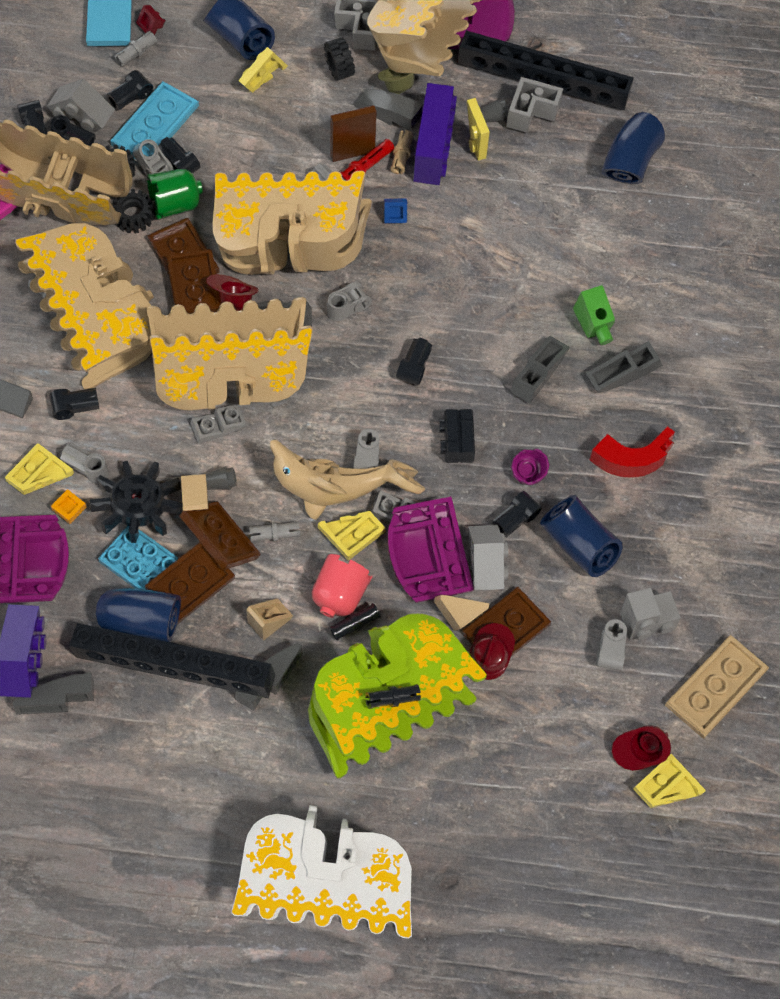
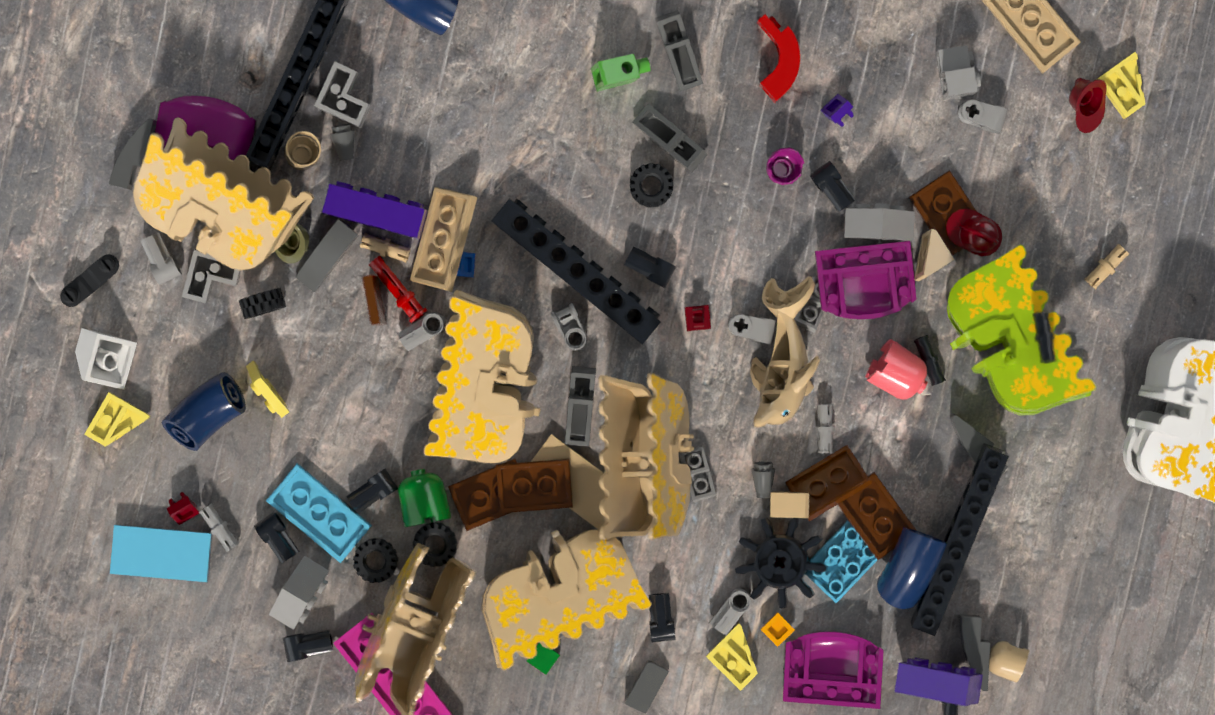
camera: 80 degrees left, 25 degrees up
(29, 309) = (544, 659): none -> green tile
(48, 723) = (1007, 661): none -> tan helmet
(70, 130) = (332, 601): black piece -> none
(154, 161) = (378, 518): light grey piece -> none
(232, 290) = (553, 447): dark red piece -> none
(267, 617) = (916, 442): tan slope -> none
(352, 533) = (835, 352): light yellow wing -> none
(370, 410) = (697, 318): none -> dark red tile
(416, 190) = (443, 239): none -> tan tile
(440, 240) = (505, 221): none -> black brick
(458, 436) = (740, 233): black brick -> none
(475, 787) = (1106, 266): none -> tan pin
(476, 79) = (297, 155): none -> tan helmet
(478, 130) = (382, 163): light yellow wing -> none
(492, 345) = (651, 170): none -> black tyre
(582, 536) = (867, 129): dark blue brick -> none
(599, 512) = (837, 109): none -> dark purple tile

